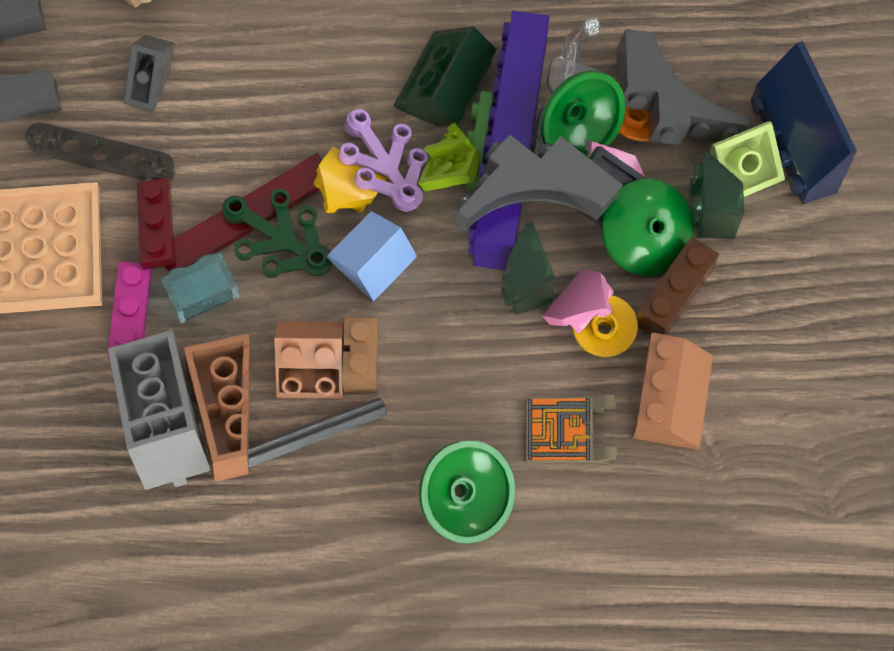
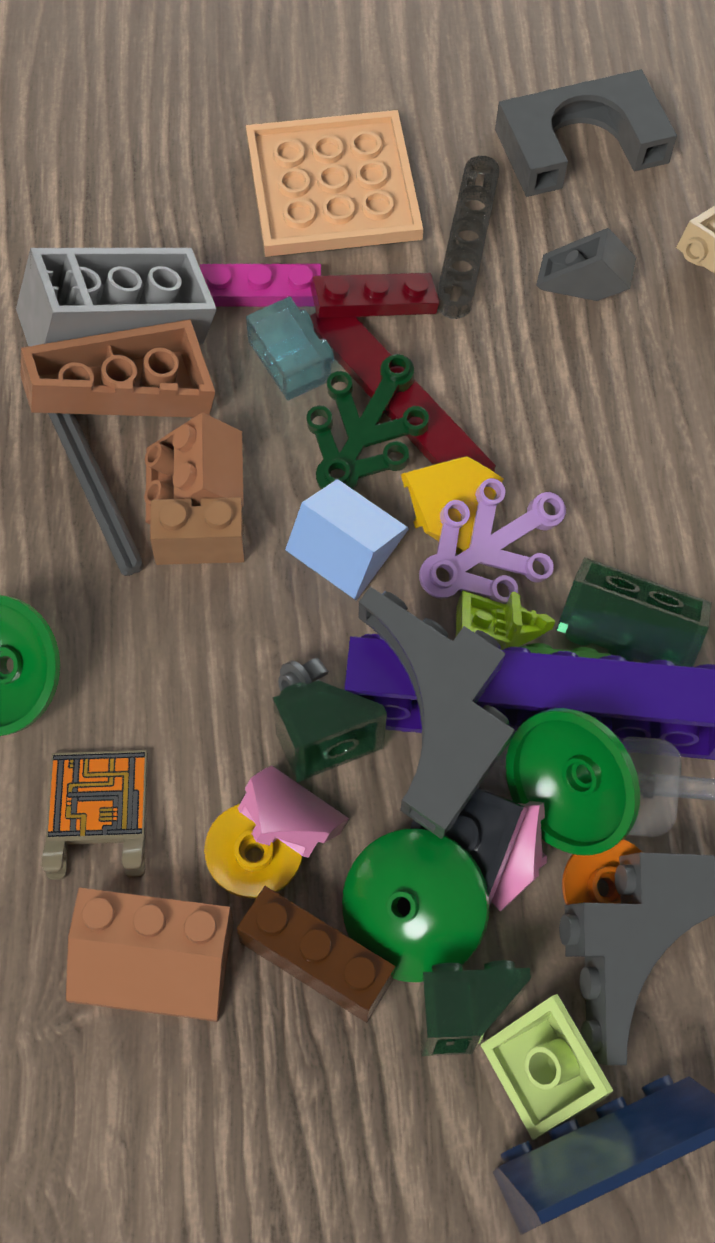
camera: 85 degrees right, 5 degrees down
(483, 292) = (294, 672): none -> dark grey plate

